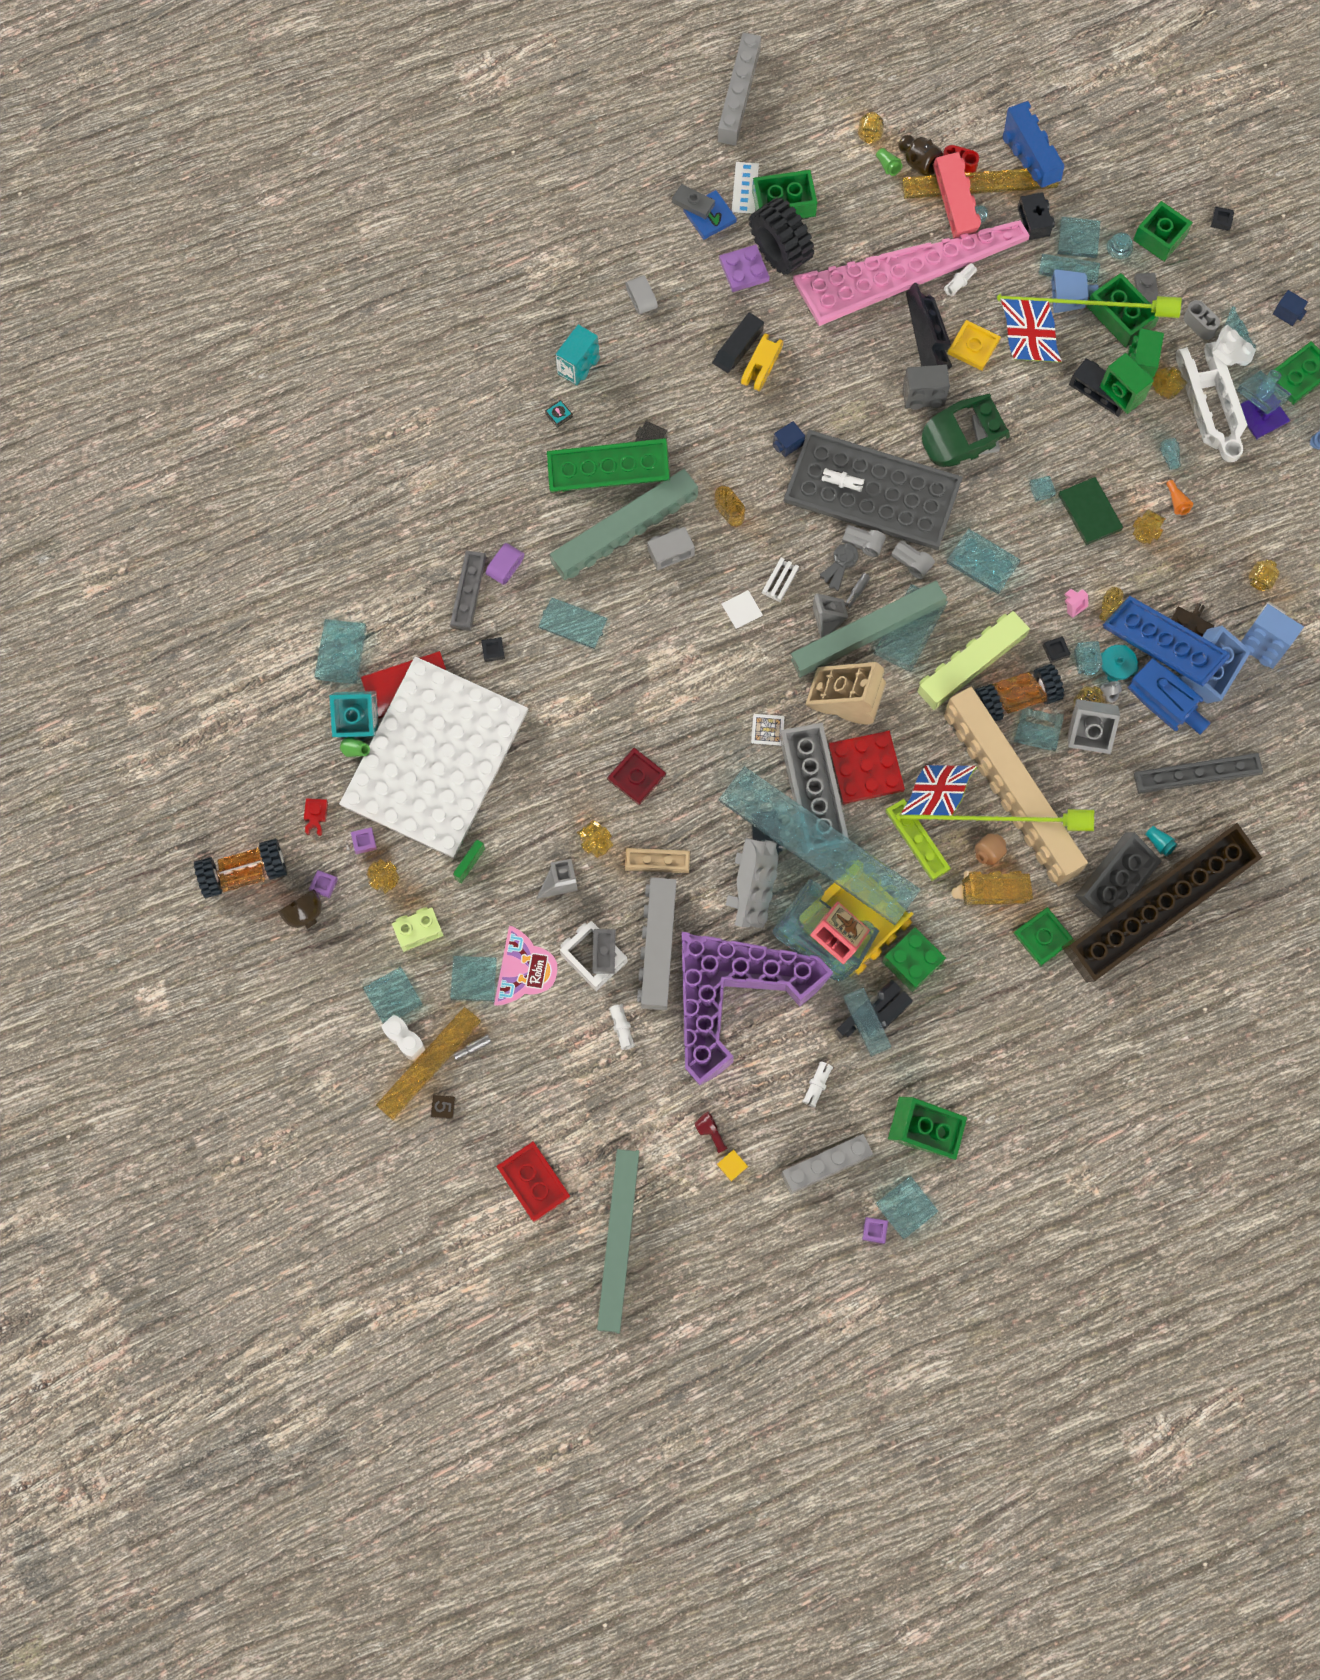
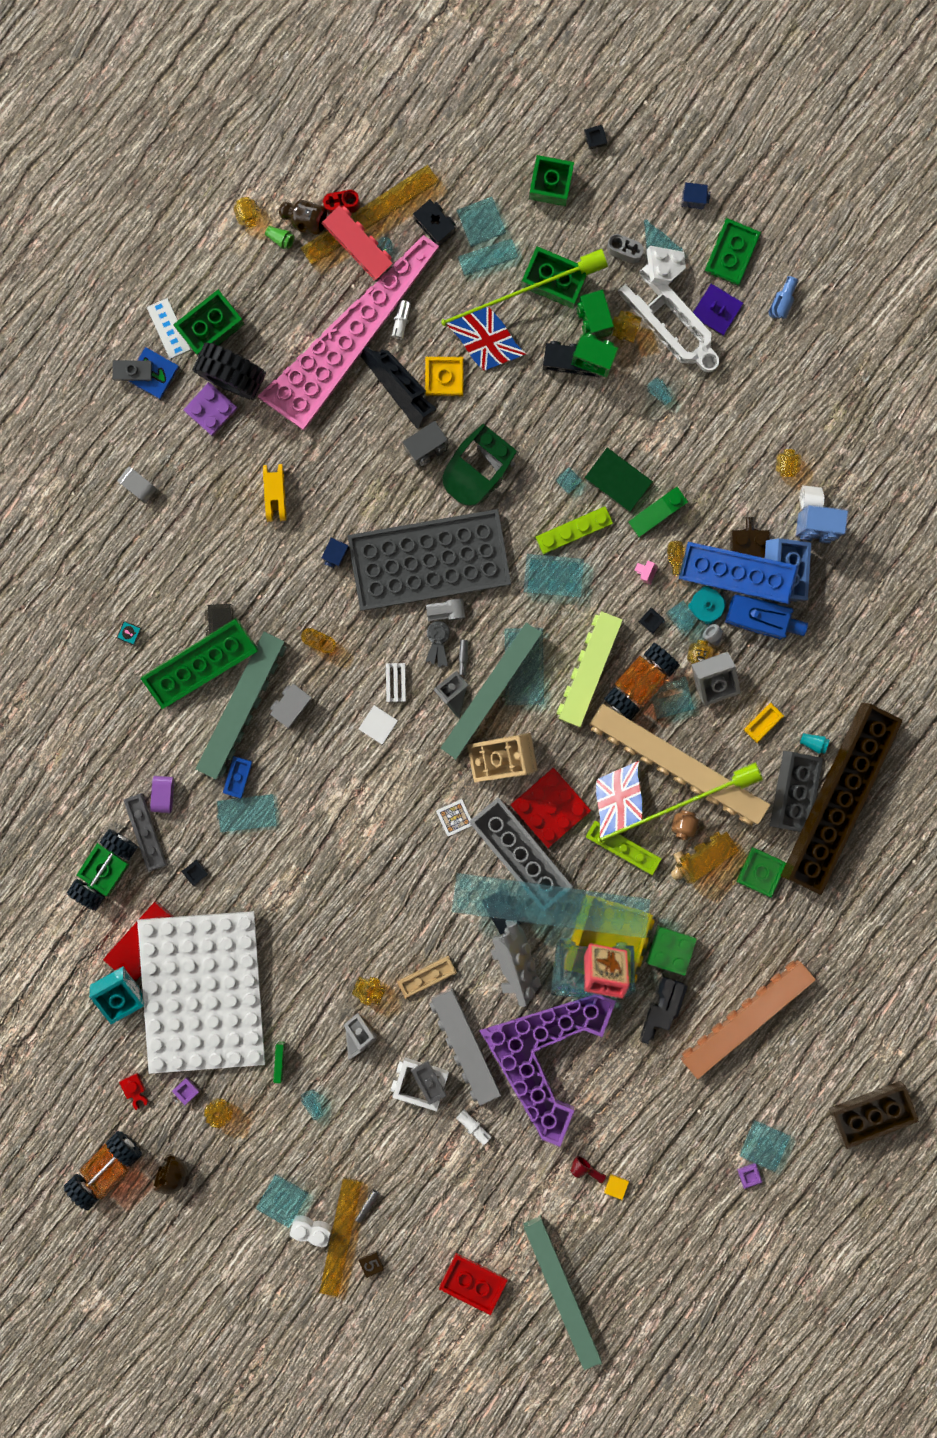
camera: 25 degrees left, 15 degrees up
(323, 883) = (174, 1141): medium lavender tile -> none
(340, 651) = (72, 942): clear light blue plate -> none
(353, 747) = (133, 1021): bright green cone -> none
(410, 597) = (102, 870): none -> plate
(417, 929) = (270, 1139): yellowish green brick -> none
(473, 978) = (336, 1151): clear light blue tile -> none
(477, 917) = (311, 1102): none -> clear light blue cone
(524, 969) = (371, 1121): sticker -> none
(577, 355) = (116, 575): teal brick -> none
(583, 585) = (237, 777): none -> blue plate
(636, 776) = (371, 916): dark red tile -> none
(738, 343) = (245, 486): black piece -> none
(739, 89) = (111, 235): light grey brick -> none
(817, 1084) = (648, 1088): white pin -> none
(827, 1164) = (688, 1148): light grey brick -> none
(843, 480) = (401, 569): white pin -> none
(867, 1022) = (662, 1024): clear light blue tile -> none
(917, 562) = (499, 606): light grey piece -> none
(927, 1127) = (749, 1077): green slope -> none
(955, 1069) = (747, 1019): none -> nougat brick
(1025, 533) = (574, 530): none -> lime plate
(1032, 145) = (398, 159): blue wedge -> none
(1037, 1233) = (873, 1114): none -> dark brown brick
(1070, 286) = (501, 279): medium blue torso -> none
(1116, 555) = (658, 511): none -> green slope
(1118, 797) = (763, 722): none -> yellow tile
(1120, 246) = (520, 212): clear light blue cone -> none
(1147, 285) = (565, 243): flat silver plate -> none
(1148, 527) = (674, 472): clear yellow brick -> none
(1181, 503) = (689, 432): orange cone -> none
(1198, 773) = (816, 666): dark grey tile -> none
(1265, 391) = (710, 291): clear light blue tile -> none

